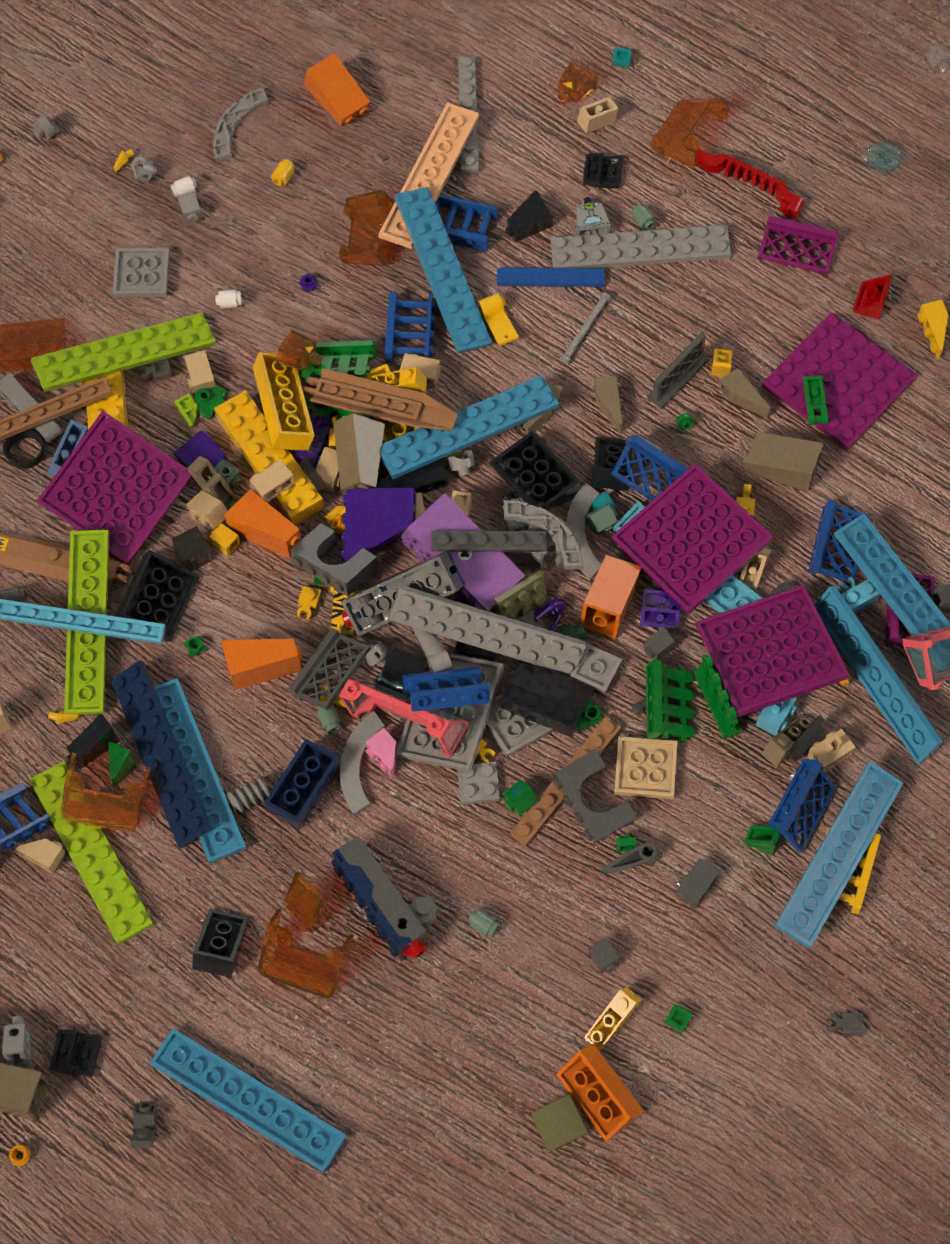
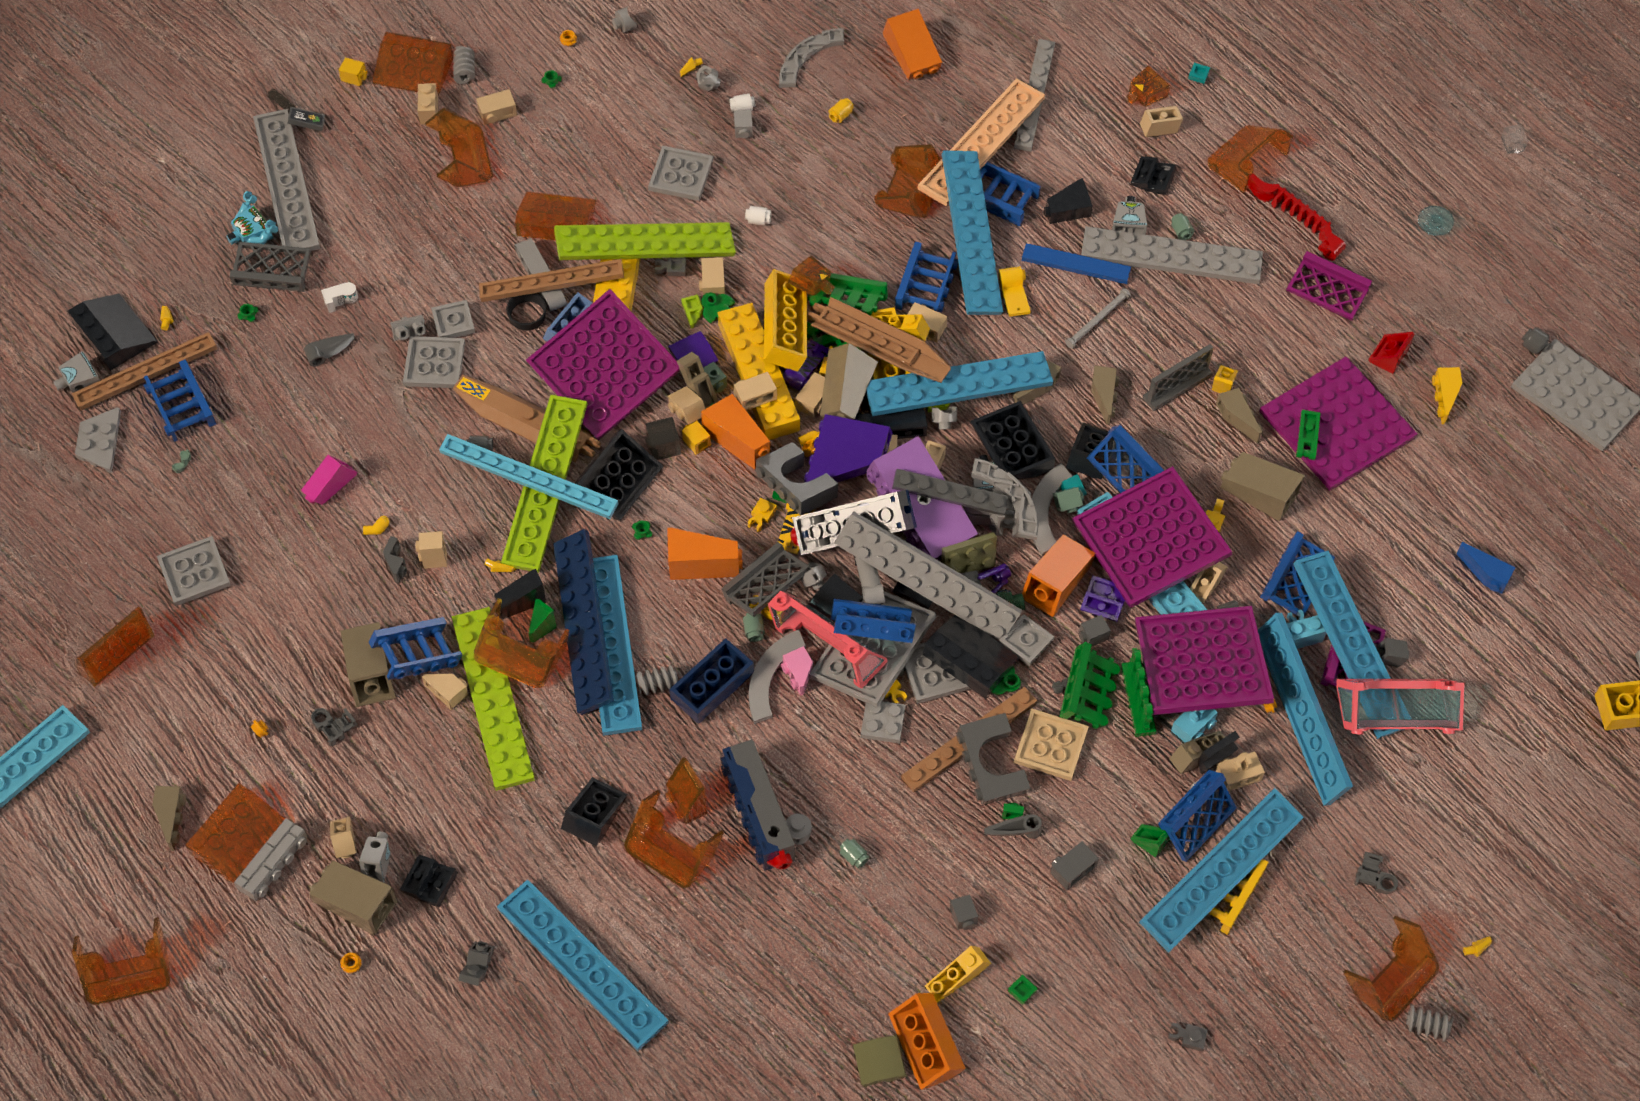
camera: 10 degrees right, 5 degrees down
(308, 286) = (839, 221): dark purple plate -> none
(312, 474) = (796, 394): clear smoke axle -> none
(519, 798) = (919, 743): green brick -> none
(685, 421) = (1174, 427): green plate -> none

